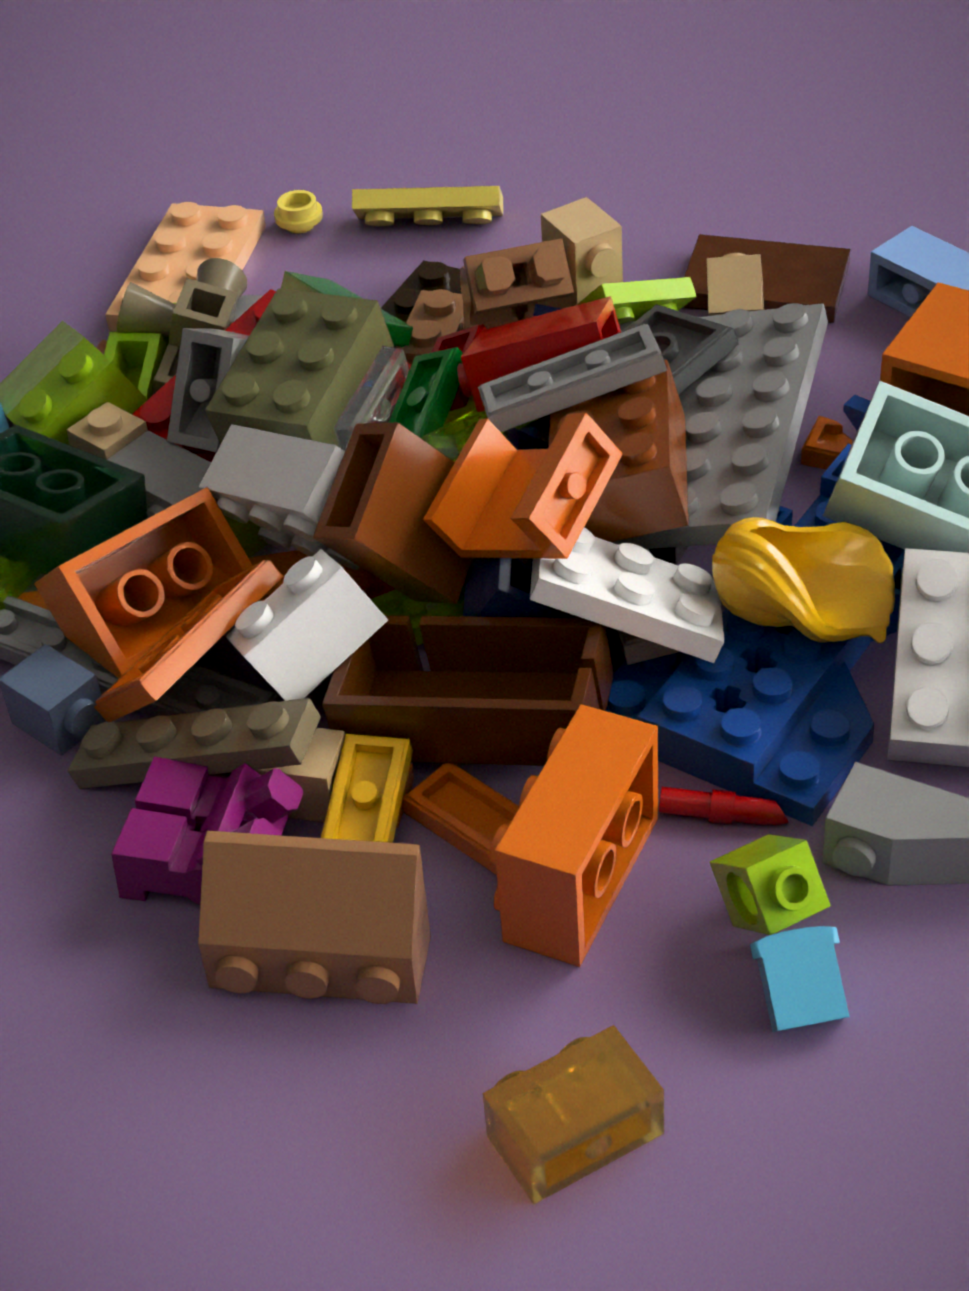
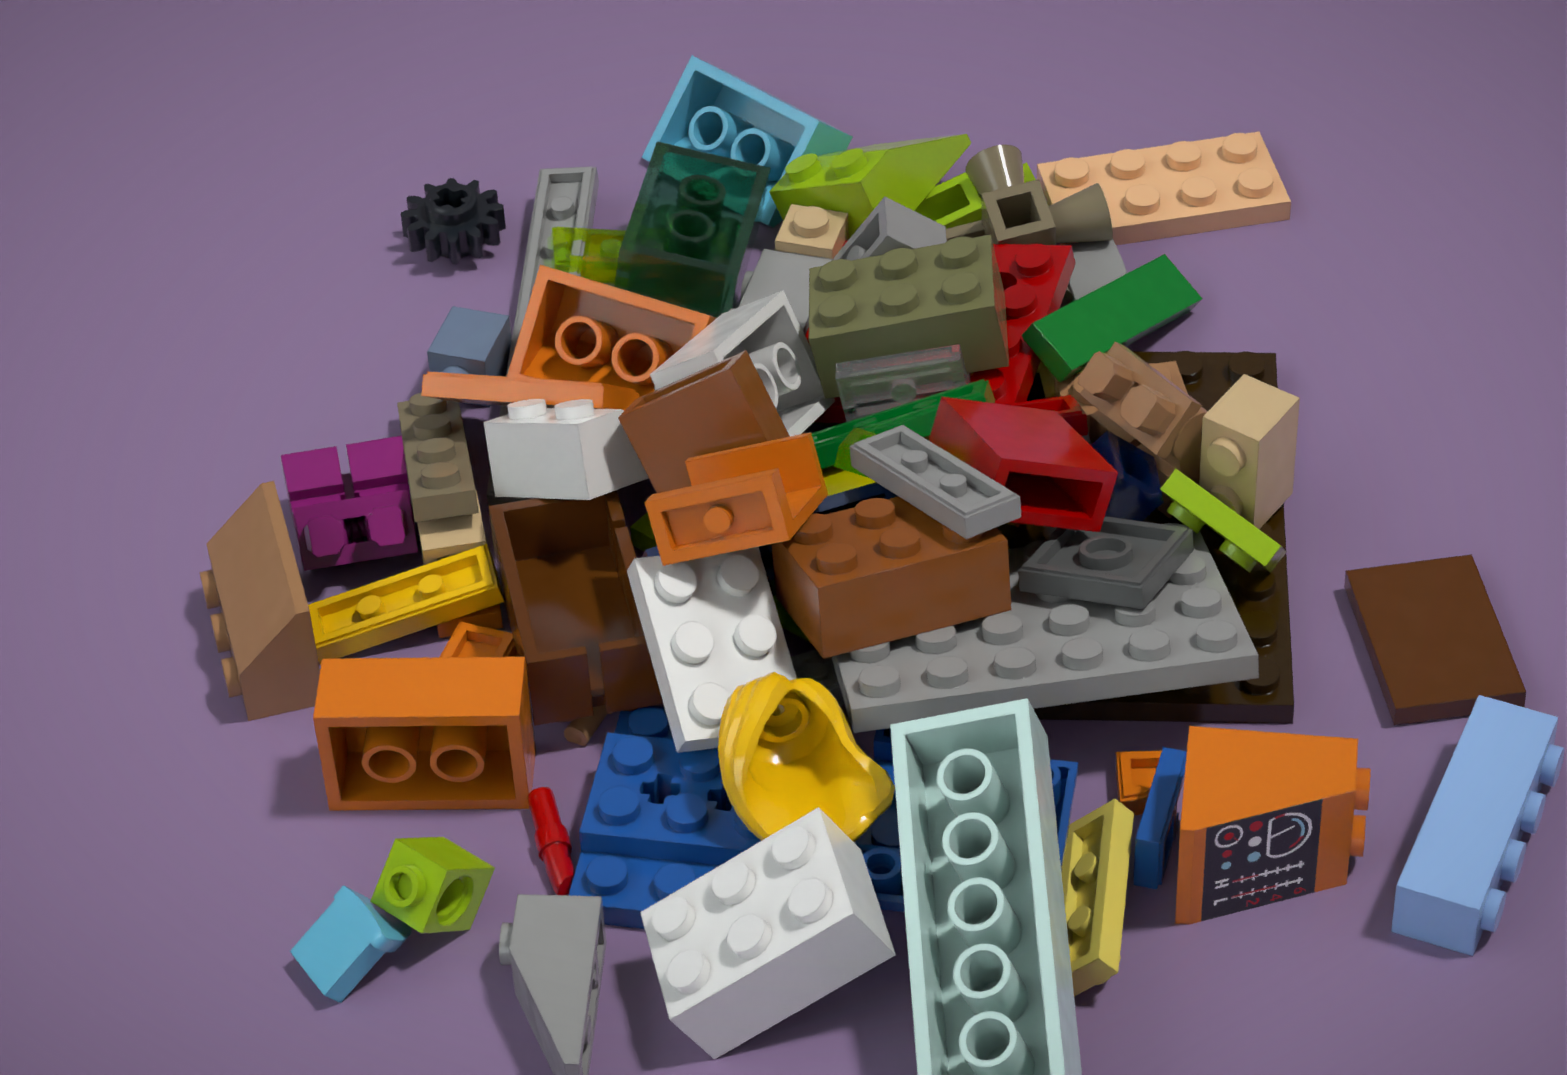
camera: 65 degrees right, 0 degrees up
(298, 211) = (1310, 228): light yellow plate -> none
(428, 205) = (1380, 320): light yellow plate -> none
(573, 1113) = (144, 840): clear yellow brick -> none
(734, 283) = (1337, 611): tan brick -> none

